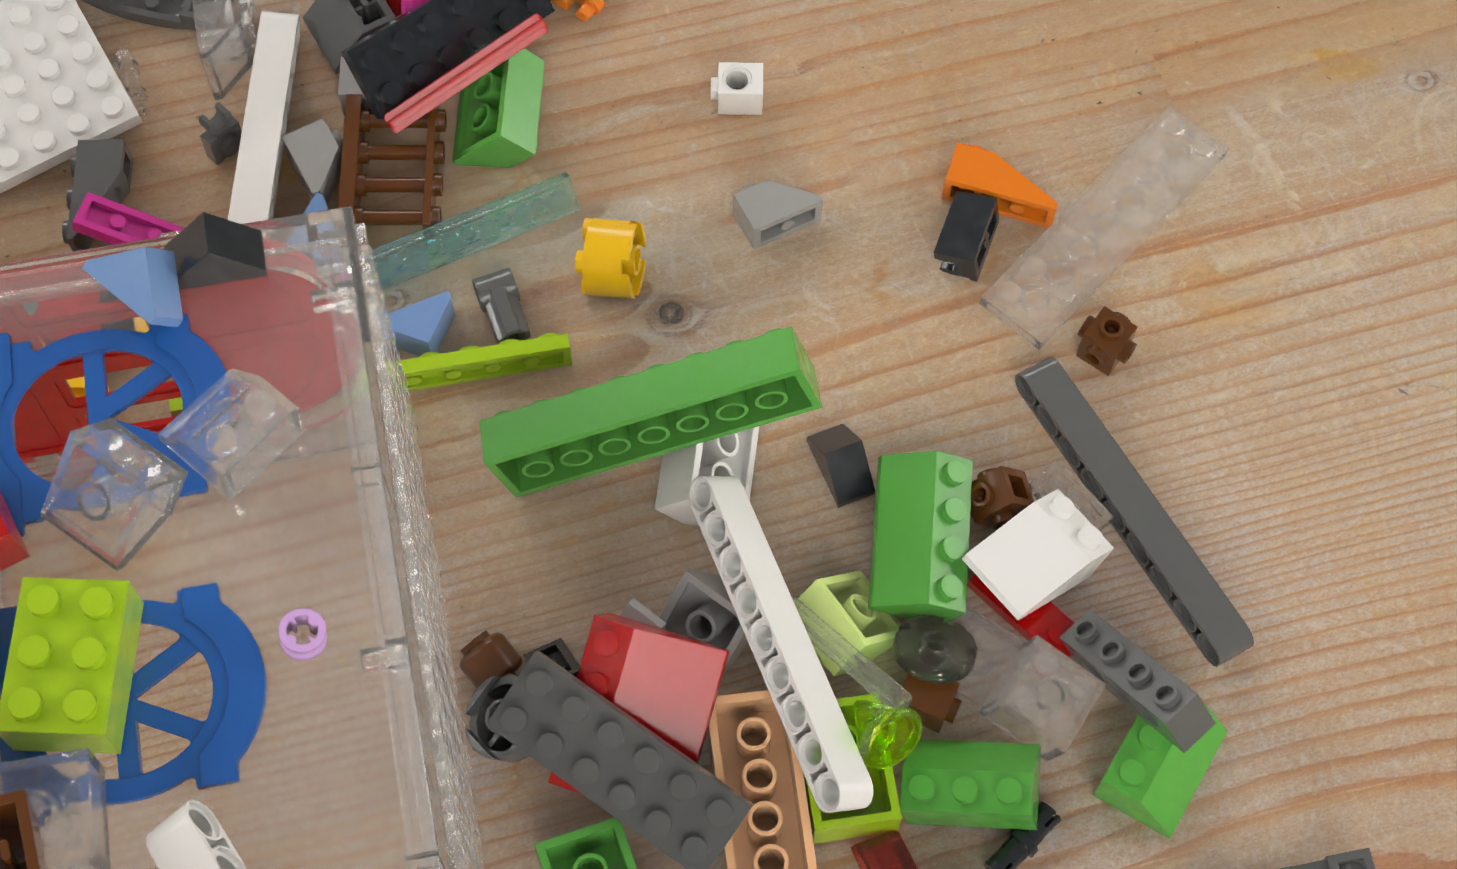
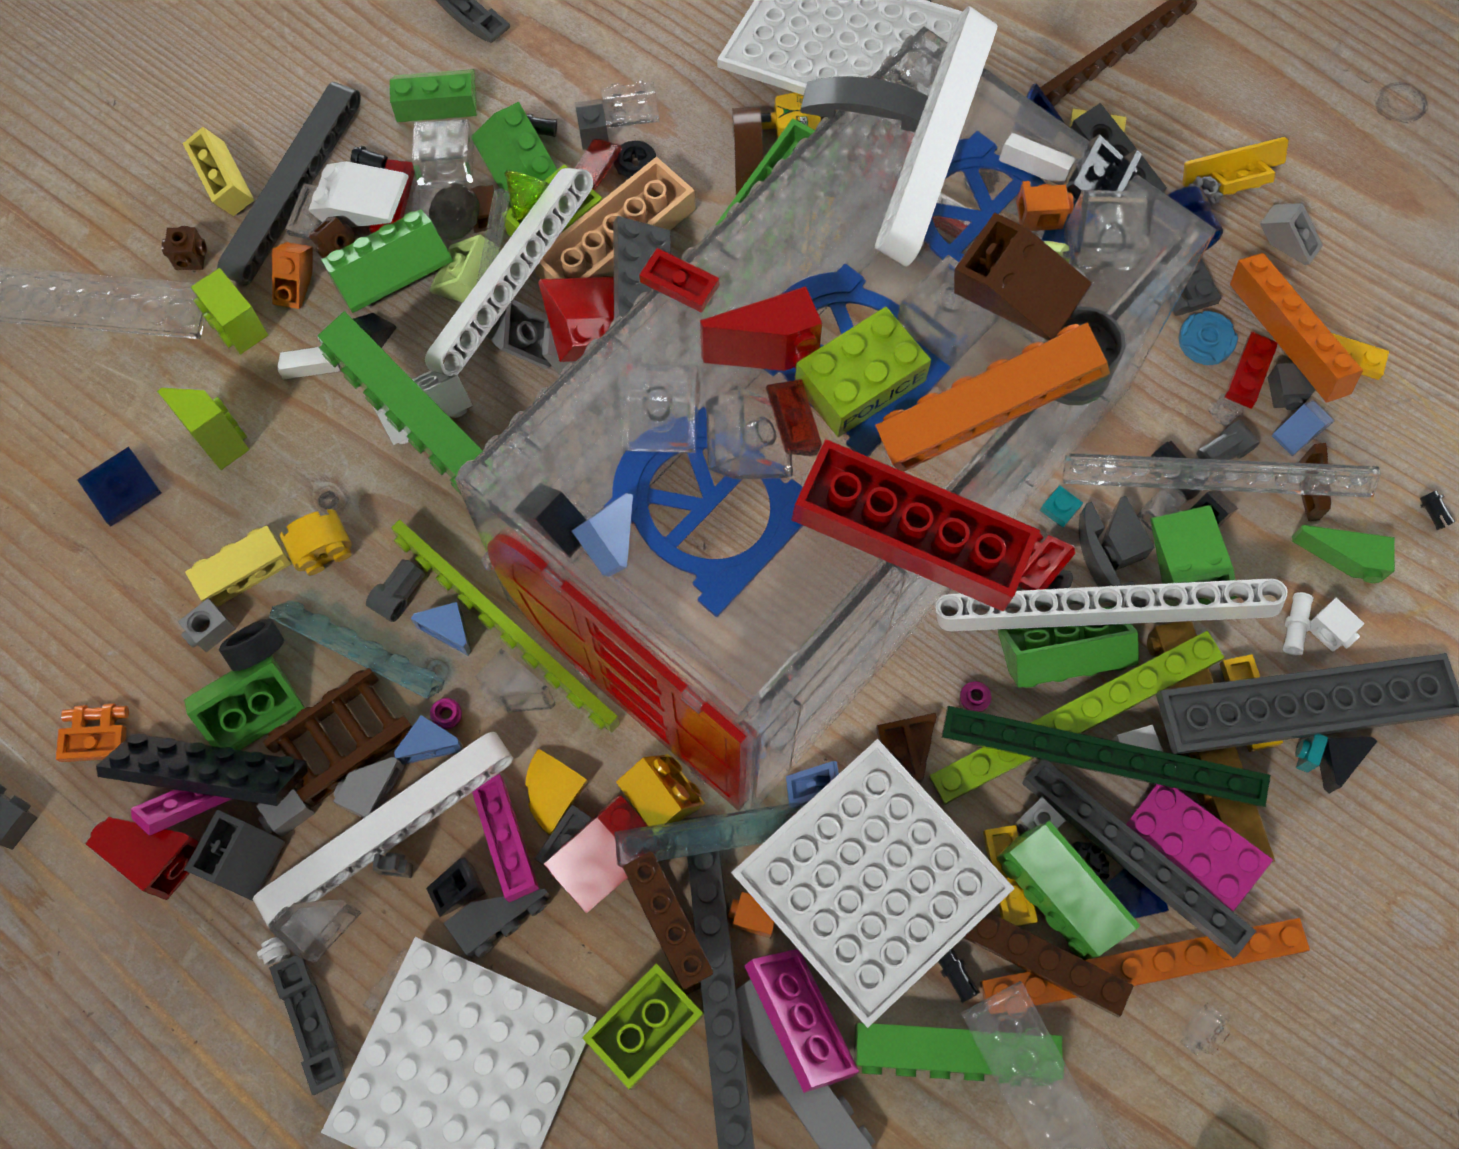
camera: 125 degrees left, 5 degrees up
(87, 547) = (794, 418): none -> clear red slope
(153, 182) = (455, 887): none -> black slope
(195, 580) = (764, 333): none -> red slope
(316, 626) = (743, 297): lavender bush -> none
(373, 566) = (679, 280): none -> red plate
(466, 73) = (234, 722): axle -> none
(530, 145) = (251, 645): none -> black tyre
(611, 134) = (217, 630): none -> light grey brick
(654, 179) = (238, 566): none -> light yellow brick
(738, 75) = (117, 557): white brick -> none
(774, 211) = (214, 483): light grey slope -> none
(830, 219) = (208, 423): none -> lime slope
(840, 131) = (119, 486): none -> clear blue plate
(859, 388) = (304, 363): none -> white slope
(967, 234) = (154, 363): black hinge -> none
(973, 330) = (228, 312): none -> lime brick
(989, 175) = (105, 373): orange slope -> none
(990, 431) = (291, 274): none -> orange slope
(1113, 609) = (365, 157): none -> black pin
(1138, 681) = (403, 101): dark grey brick -> none
(1194, 430) = (218, 171): none -> light yellow brick

